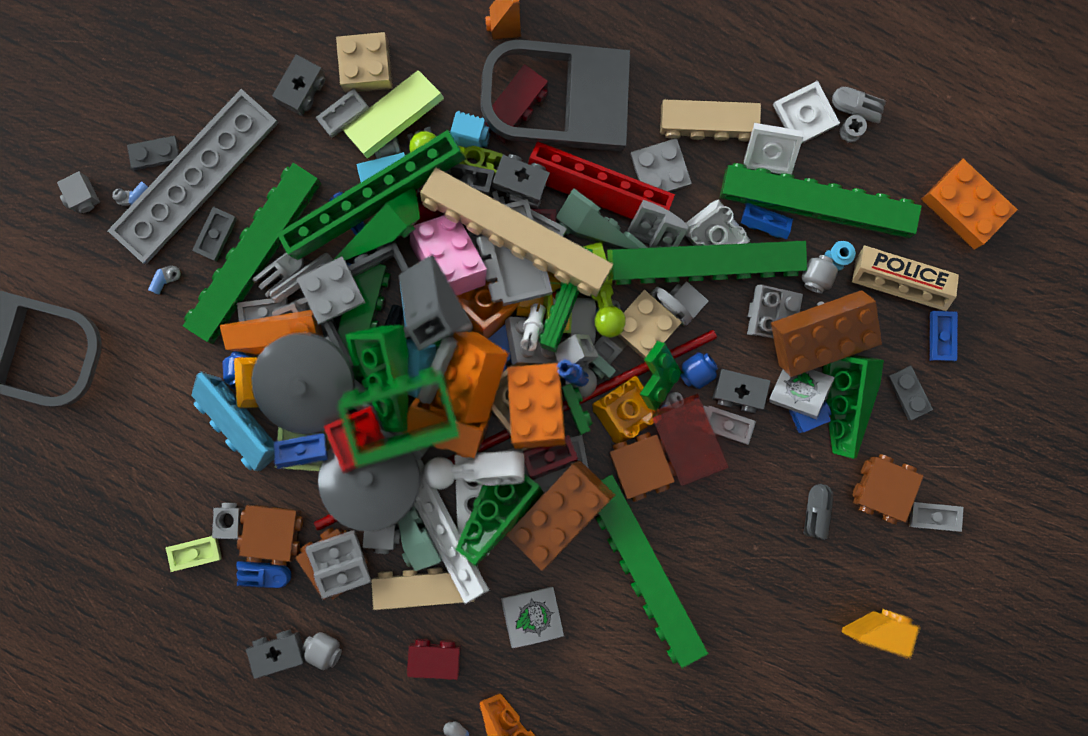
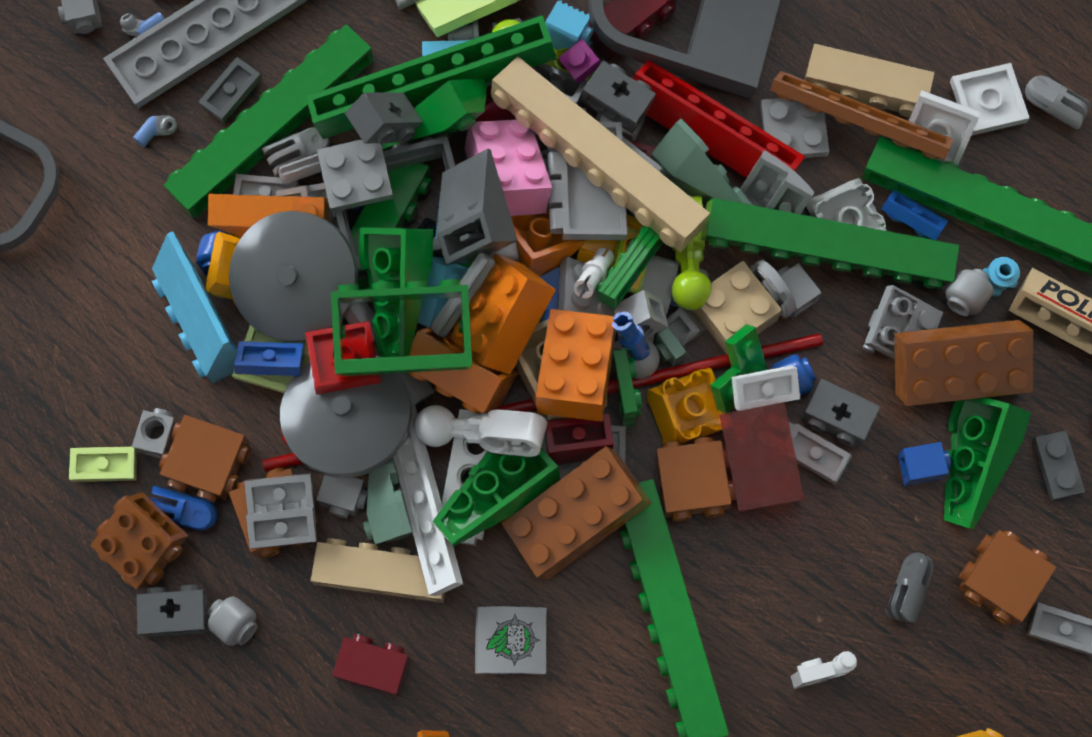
camera: 15 degrees right, 10 degrees down
(236, 607) = (138, 540): none -> dark orange brick
(343, 242) = (384, 118): none -> dark grey brick
(484, 156) = (580, 61): none -> magenta plate
(682, 387) = (765, 388): none -> white plate
(711, 151) = (871, 119): none -> dark orange plate
(762, 594) = (815, 672): none -> white plate
(802, 392) = (918, 429): light grey slope -> none
(850, 134) = (1044, 128): light grey bush -> none

